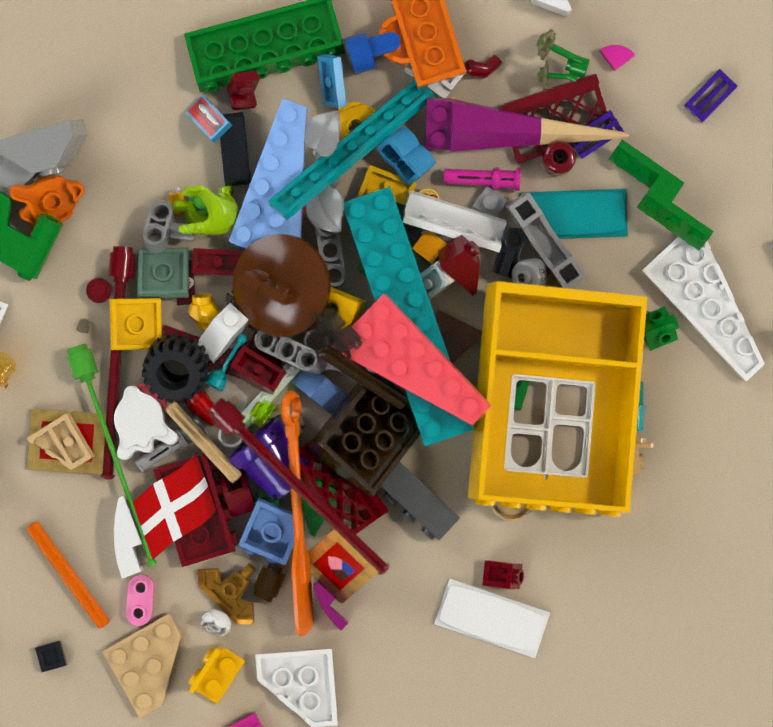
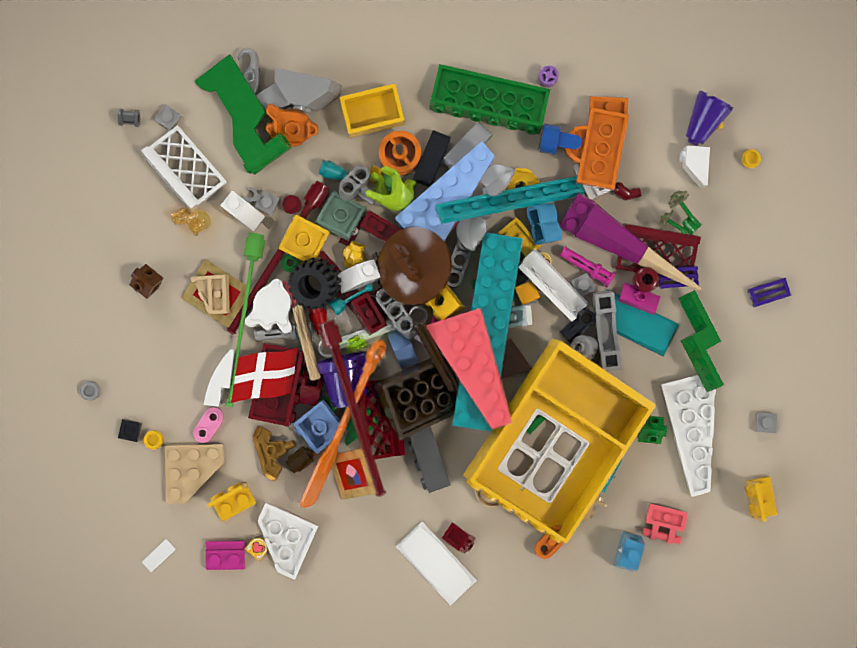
camera: 30 degrees right, 0 degrees up
(45, 328) = (242, 211): none -> white slope
(66, 304) = (264, 202): none -> light grey plate
(68, 574) = (170, 383): orange axle -> none
(85, 652) = (153, 439): none -> yellow tile
(125, 225) = (332, 171): none -> teal cone
(126, 360) = (284, 263): none -> green plate
(135, 130) = (372, 110): none -> yellow piece
(193, 161) = (400, 152): none -> orange wheel
(208, 118) = (425, 129): slope -> none
(216, 622) = (251, 466): white plate -> none
(242, 89) = (458, 121): dark red bracket -> none
(266, 111) = (467, 143): none -> light grey beam
(274, 712) = (257, 548): none -> tile
(325, 598) = (332, 490): magenta slope -> none
(330, 326) = (432, 310): clear smoke hinge -> none
(332, 80) = (521, 147): dark azure plate -> none
(462, 263) = (543, 315): dark red slope -> none
(570, 184) = (644, 301): none -> dark pink plate
(613, 523) = (552, 546): none -> orange plate
(616, 55) = (720, 232): dark pink tile -> none
(708, 484) = (629, 551): none -> dark azure torso
(731, 421) = (667, 518): none -> coral plate

